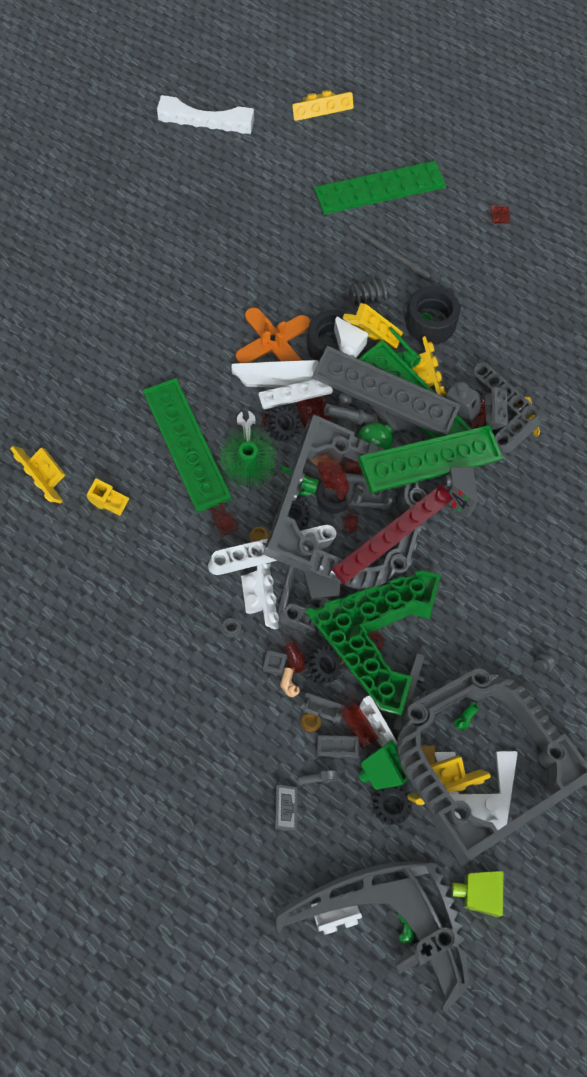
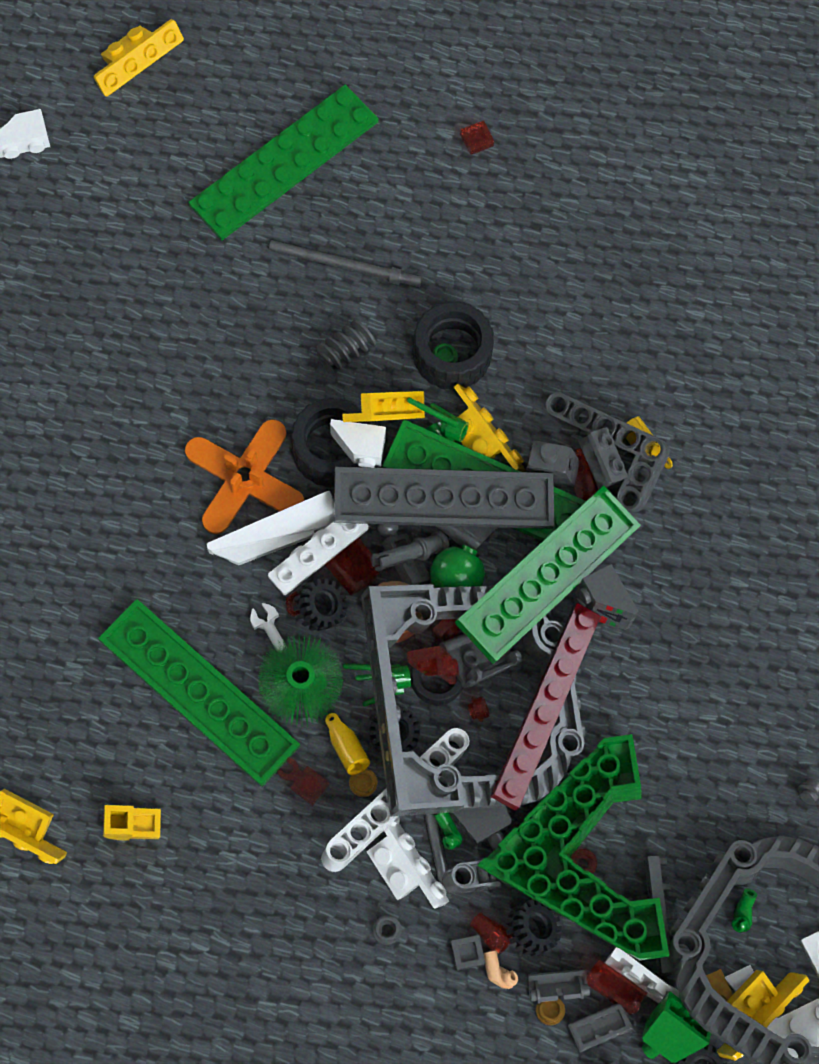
camera: 25 degrees left, 5 degrees up
(259, 509) = (347, 746): none -> yellow piece
(298, 589) = (452, 835): none -> green arm

